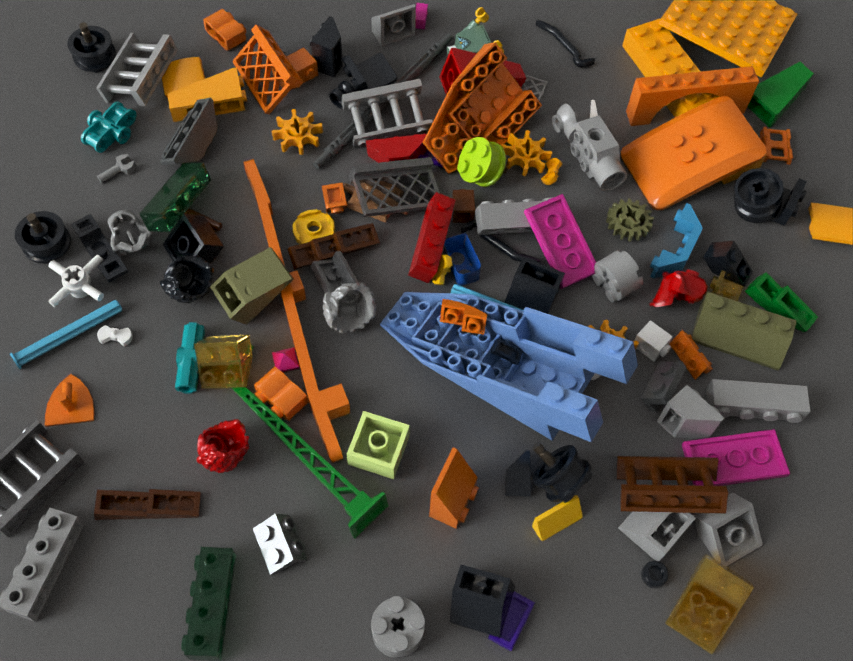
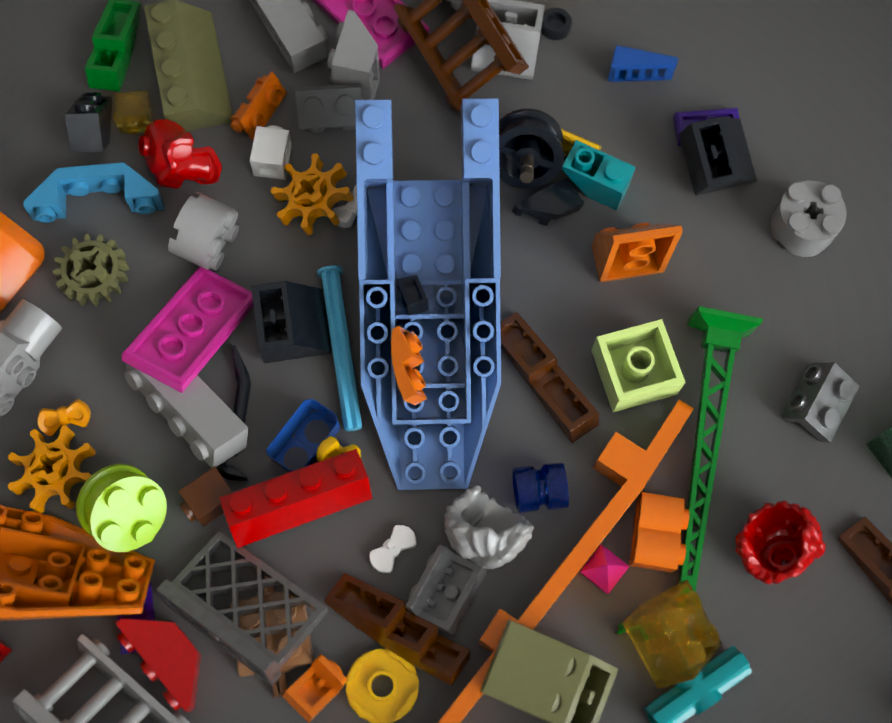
camera: 125 degrees left, 10 degrees up
(350, 350) = (540, 487): none -> clear blue wheel
(377, 277) = (383, 557): none -> white piece
(412, 401) = (546, 379): none -> reddish brown slope
(518, 512) = (598, 174): none -> teal slope
(590, 595) = (640, 65): none -> blue slope

